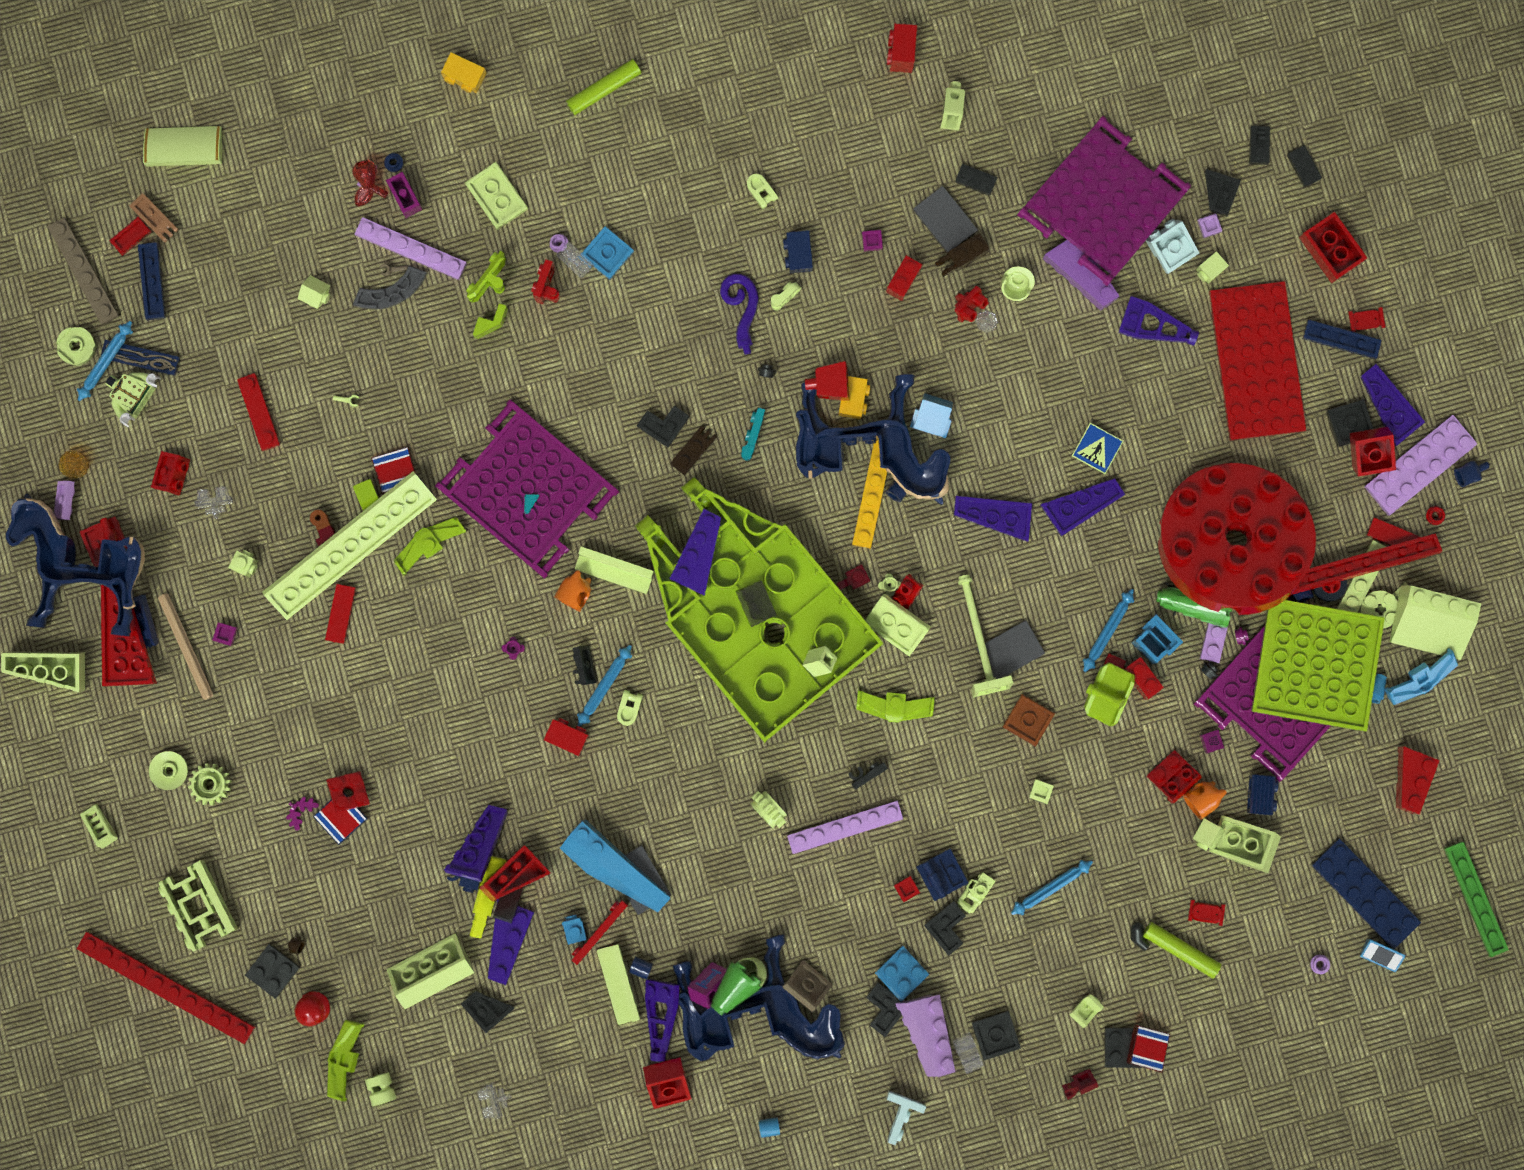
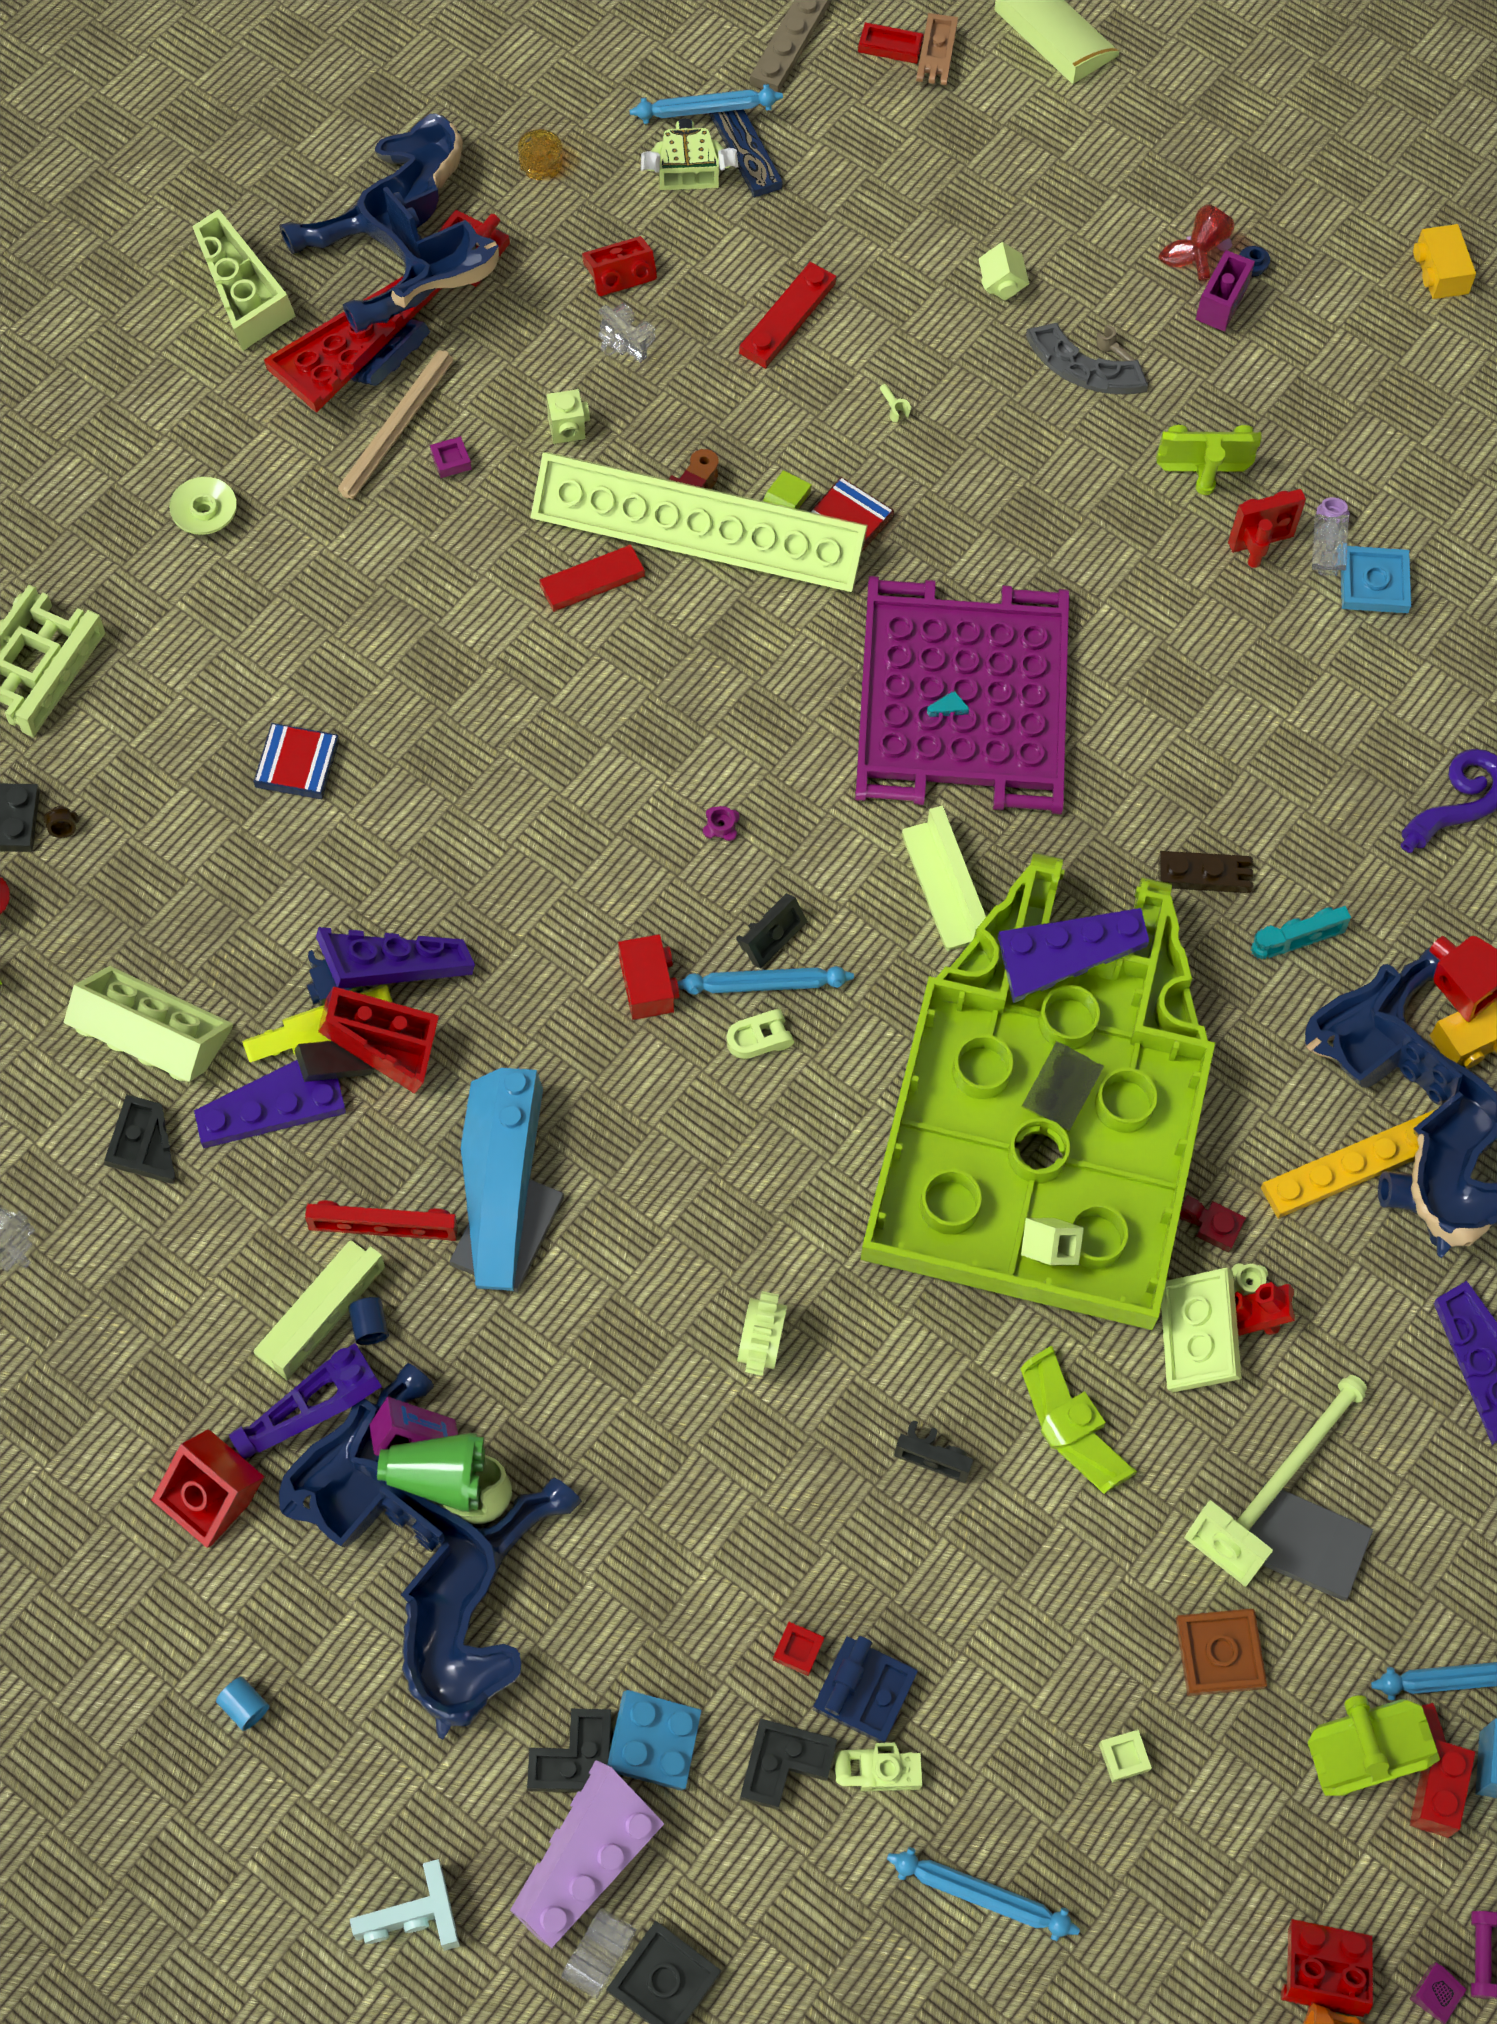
camera: 55 degrees right, 20 degrees down
(63, 500) = (472, 177): lavender plate -> none
(76, 335) = (698, 81): yellowish green plate -> none
(108, 830) = (55, 495): yellowish green slope -> none
(151, 281) = (853, 95): dark blue plate -> none
(199, 780) = (218, 551): yellowish green gear -> none
(301, 804) = (255, 699): magenta animal -> none
(349, 781) = (342, 722): red piece -> none
(410, 248) = (1161, 349): lavender plate -> none
(427, 542) = (780, 621): lime plate -> none
(487, 326) = (1141, 499): lime slope -> none
(496, 195) = (1323, 403): yellowish green tile -> none
(574, 591) = (870, 842): orange piece -> none
(574, 929) = (360, 1182): dark azure bracket -> none
(665, 430) = (1200, 813): pearl dark grey plate -> none
(766, 371) = (1405, 889): pearl dark grey plate -> none
(807, 985) = (523, 1595): dark tan plate -> none
(845, 827) = (824, 1481): lavender plate -> none

